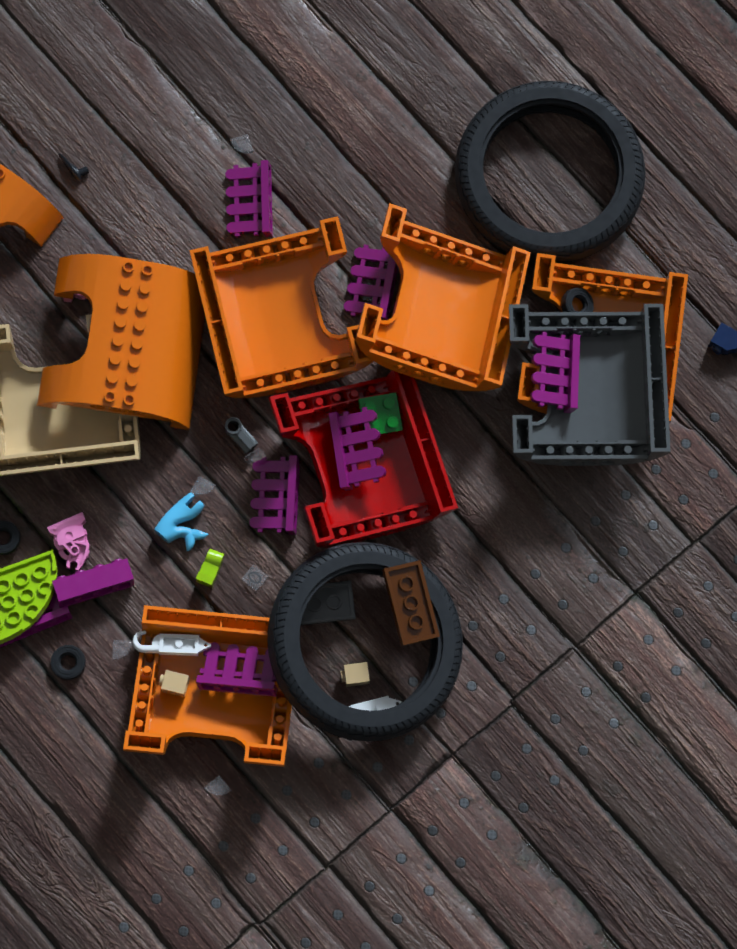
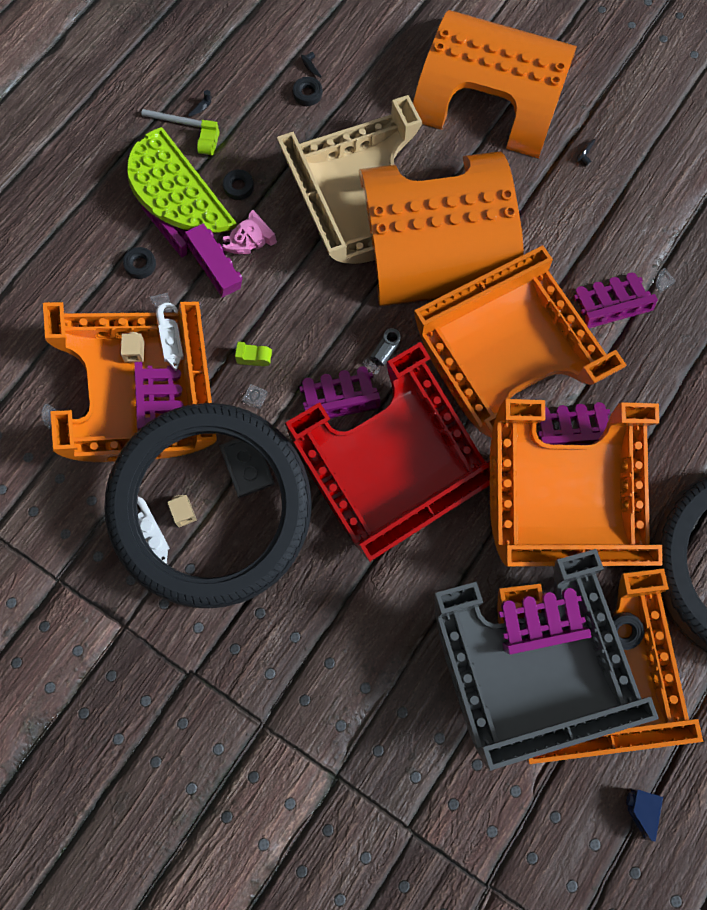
camera: 80 degrees right, 5 degrees down
(180, 513) = (282, 308): medium azure piece -> none
(202, 486) = (329, 329): clear tile -> none
(342, 441) = (397, 436): magenta fence -> none
(387, 412) = (443, 463): green plate -> none
(410, 603) = (253, 535): reddish brown plate -> none

